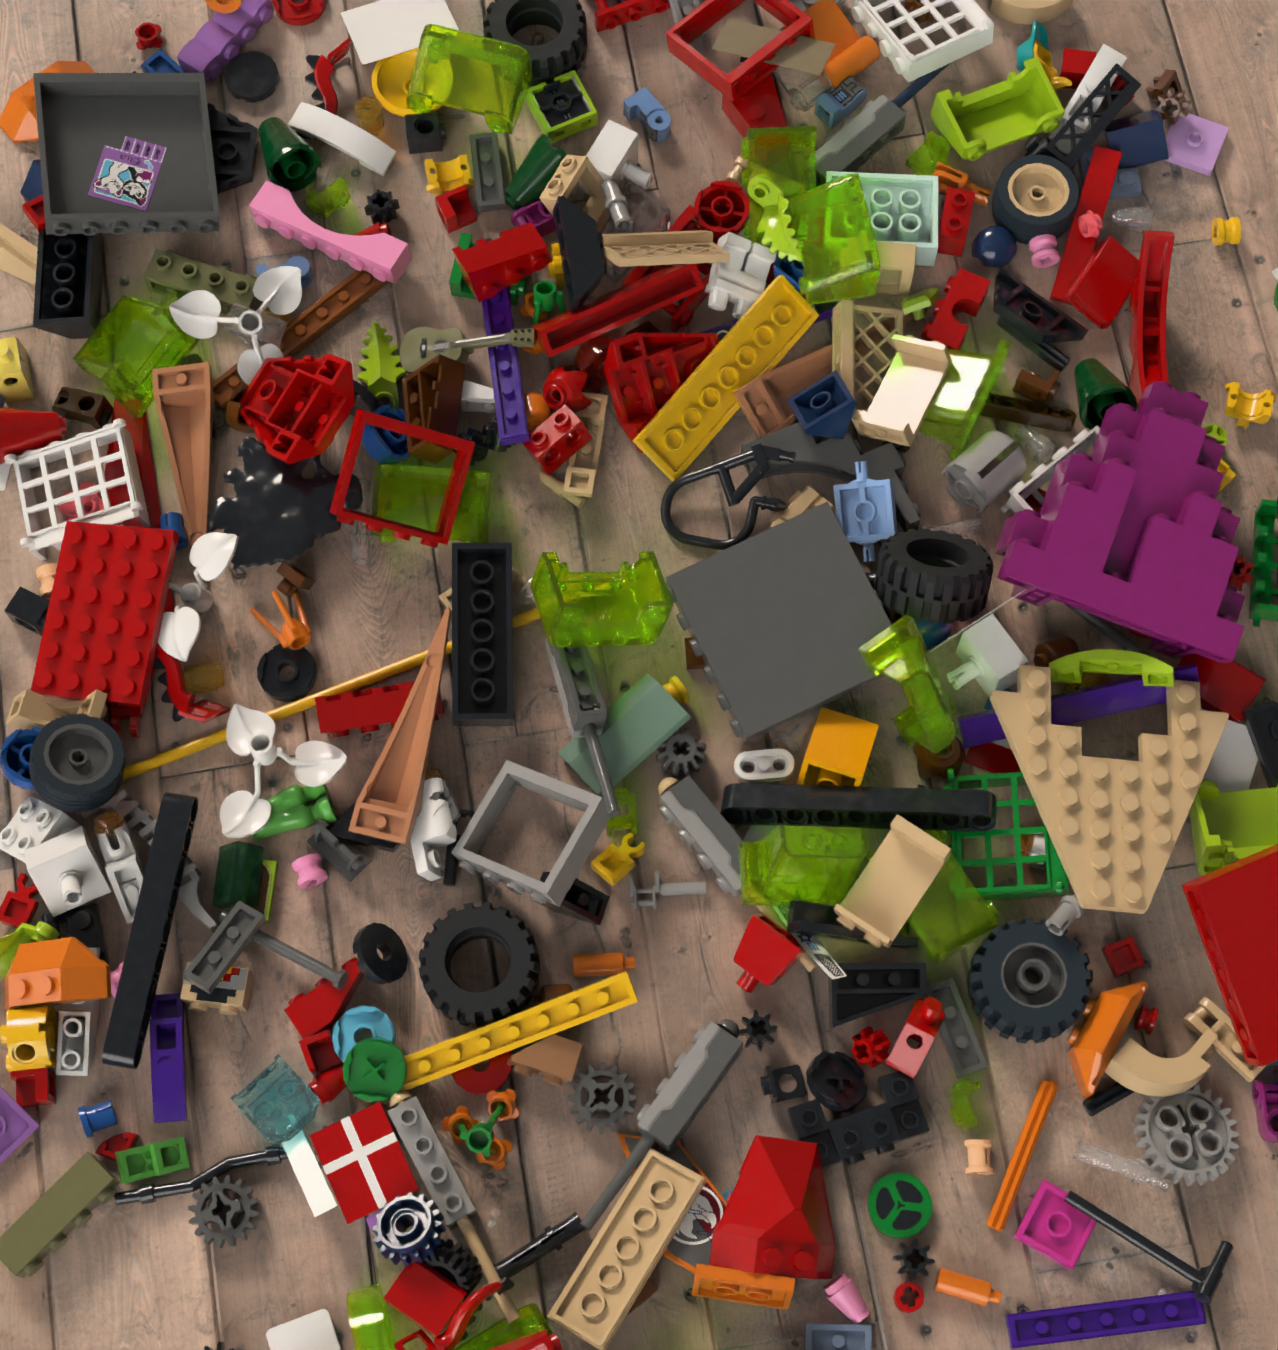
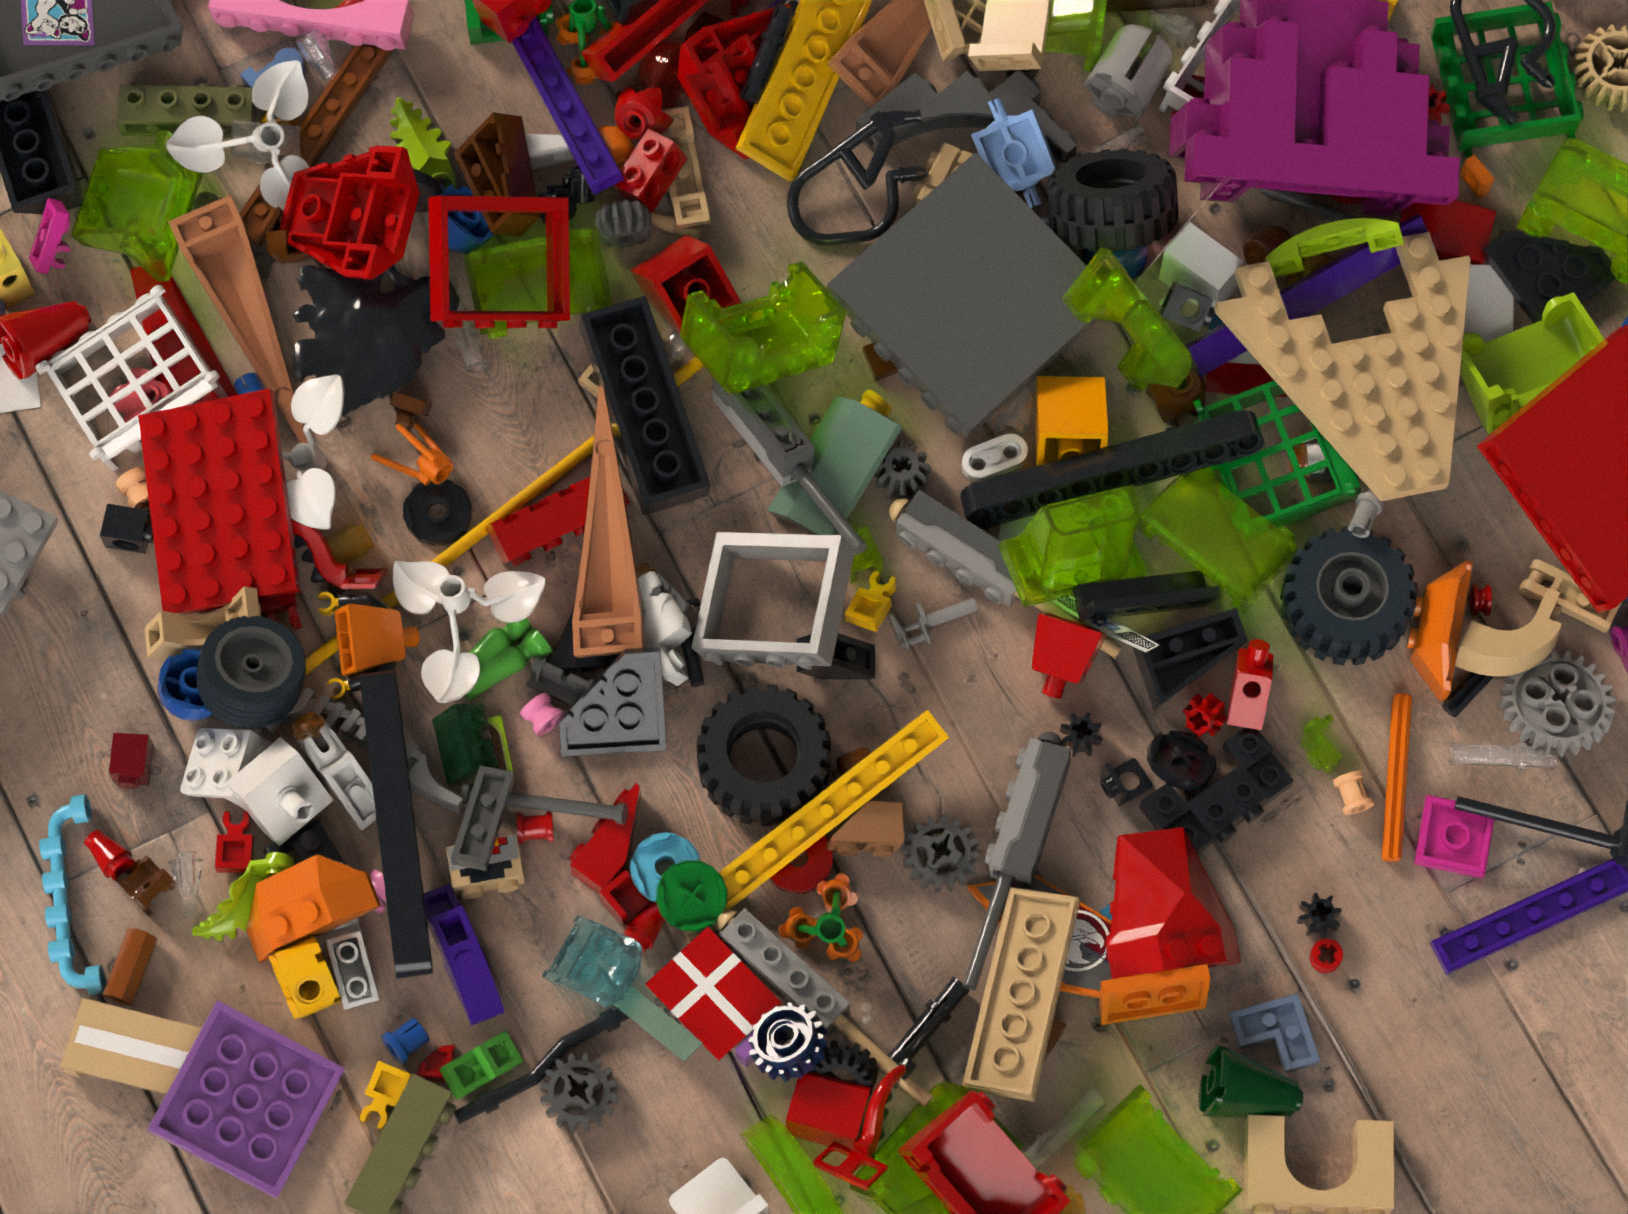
camera: 20 degrees left, 0 degrees up
(35, 1087) = (323, 1030): red panel -> none
(53, 360) = (48, 238): none -> dark pink plate
(64, 1155) = (386, 1088): none -> yellow plate
(83, 406) = (99, 286): dark brown leg -> none
(188, 761) = (367, 636): none -> orange torso
(269, 966) = (535, 827): none -> red bush
(322, 267) = (318, 53): none -> clear cone
(372, 887) = (619, 709): none -> plate
(390, 945) = (653, 776): black tile -> none
(427, 342) = (467, 107): olive piece -> none
(519, 477) = (623, 224): none -> dark grey gear
(553, 531) = (683, 270): none -> red slope
(601, 964) = (891, 717): orange cylinder -> none
(687, 365) = (772, 41): none -> black pin
(824, 407) = (934, 51): dark blue slope -> none
(846, 1297) = (1263, 975): bright pink cone -> none
(893, 883) = (1177, 532): tan panel -> none
(899, 1205) = (1286, 867): green tile -> none
(957, 1030) = (1291, 673): dark grey plate -> none
(963, 673) = (1176, 296): none -> black brick
(966, 1287) = (1381, 927): orange cylinder -> none
(1123, 956) = (1437, 543): red plate -> none
(1257, 645) = (1477, 177): none -> orange tile

